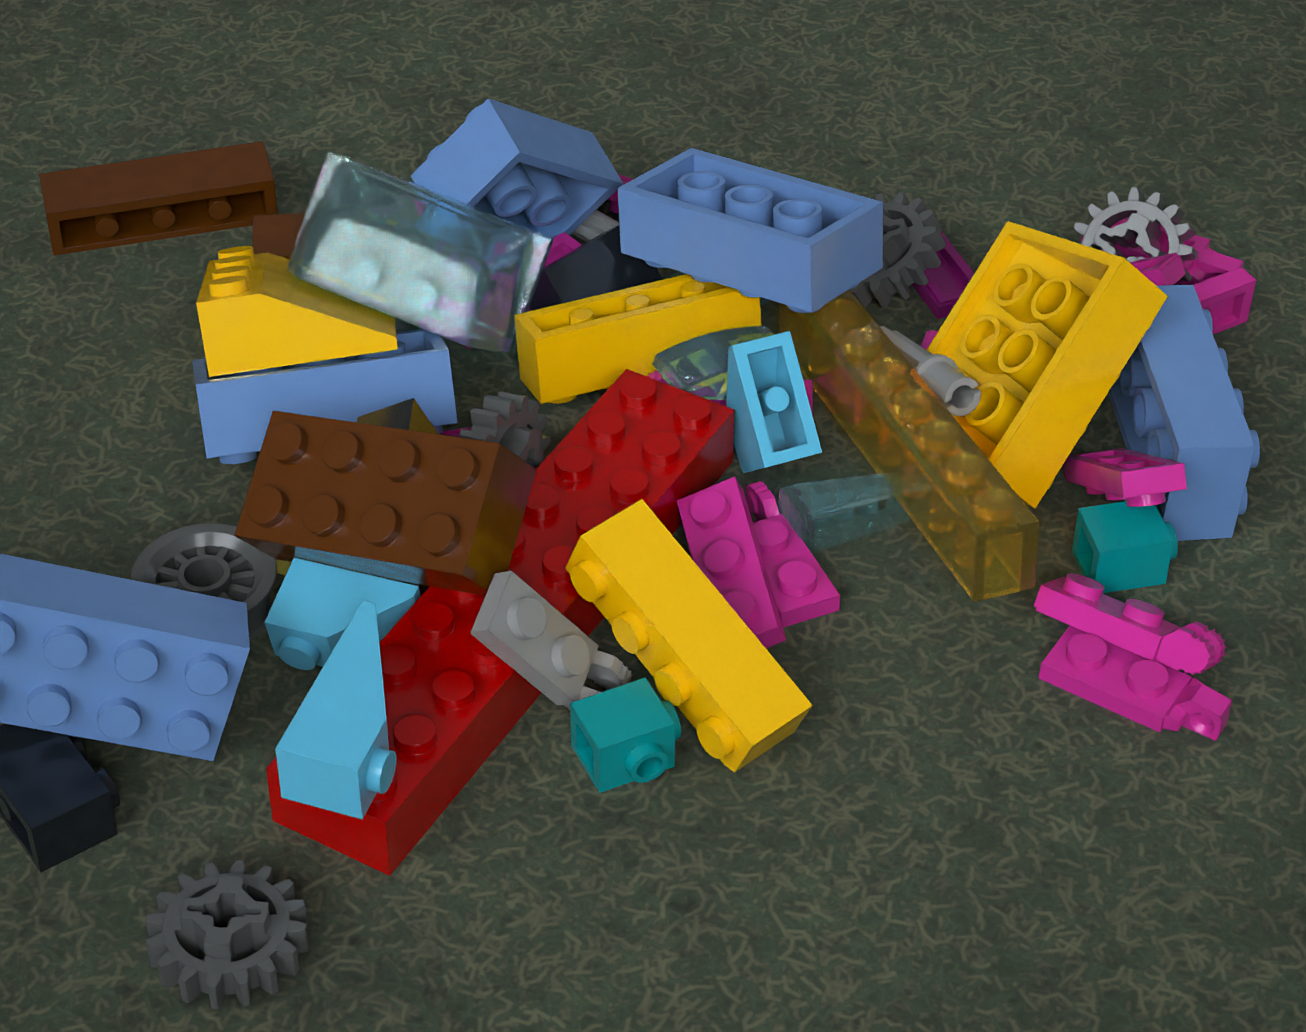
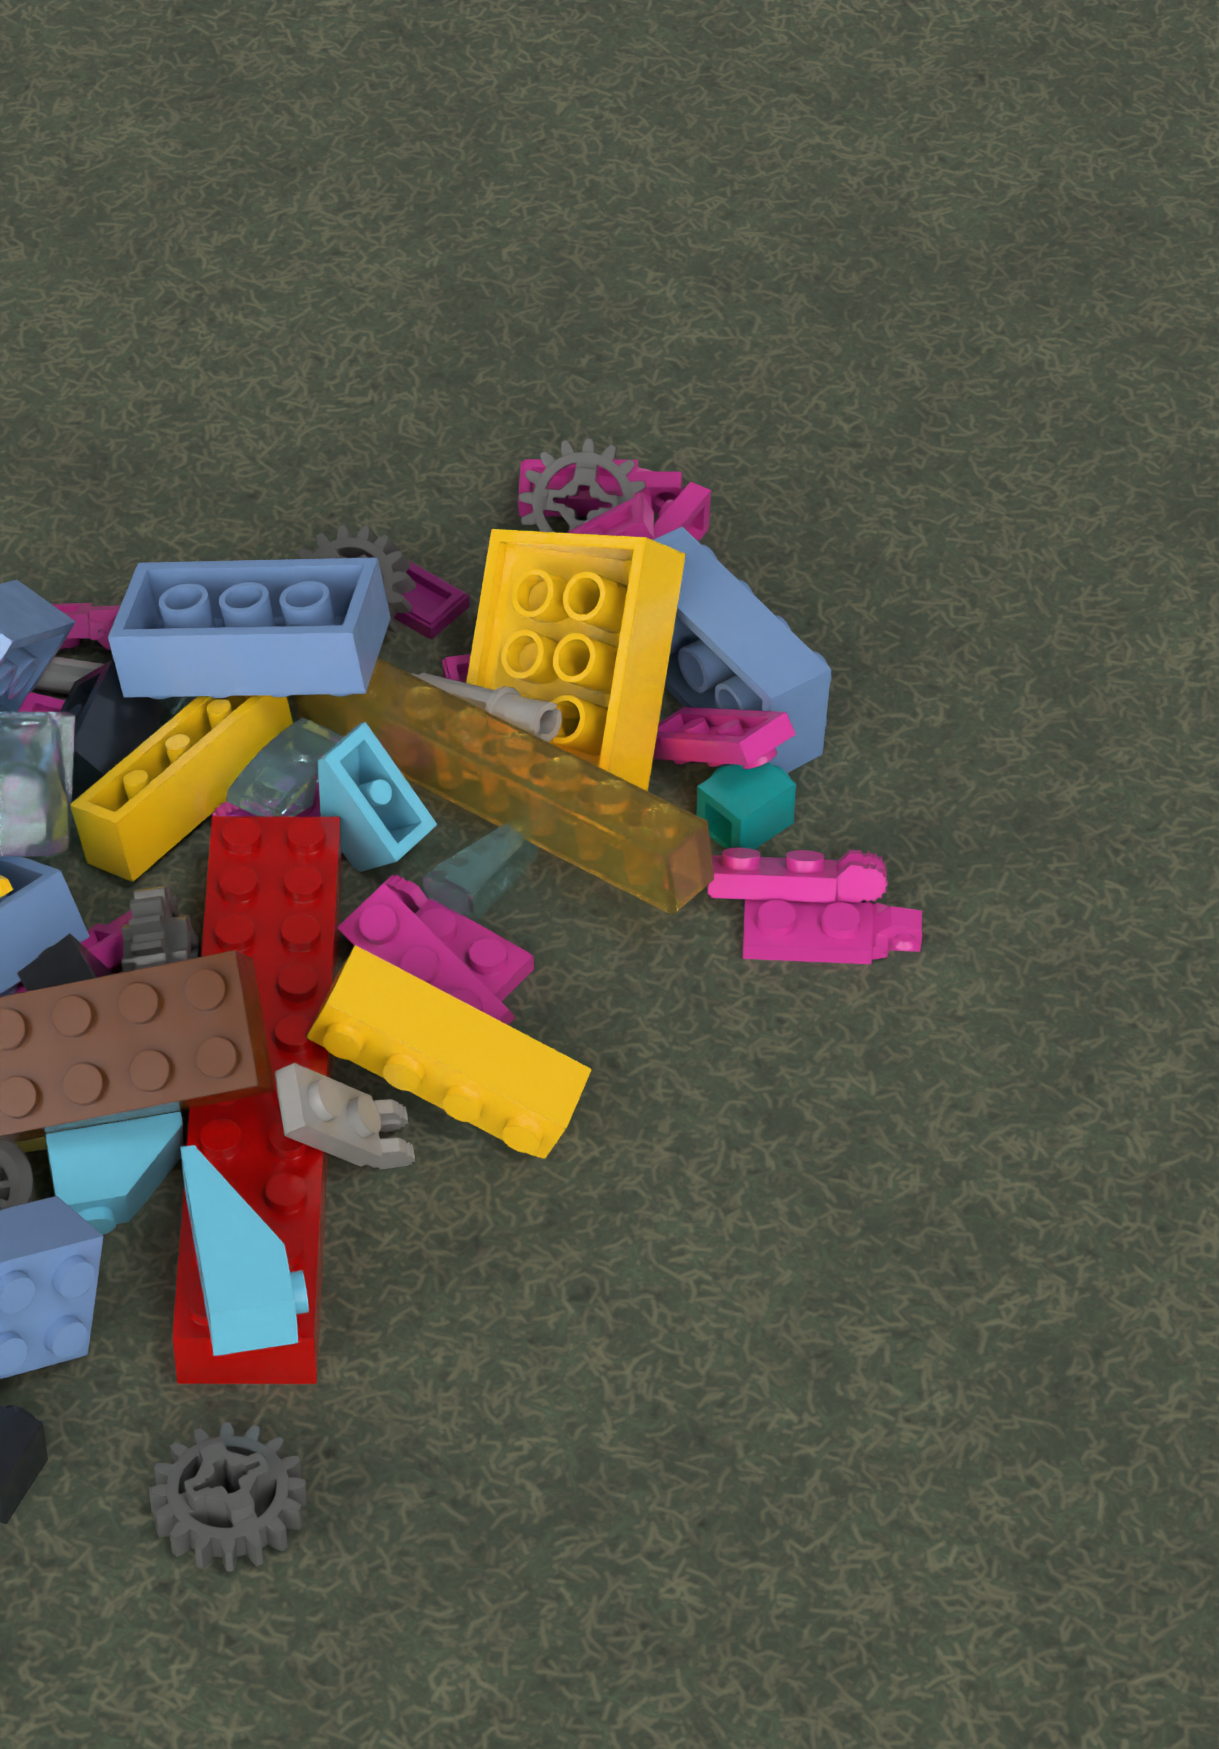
camera: 30 degrees left, 5 degrees up
(624, 735) = (440, 1168): teal brick -> none

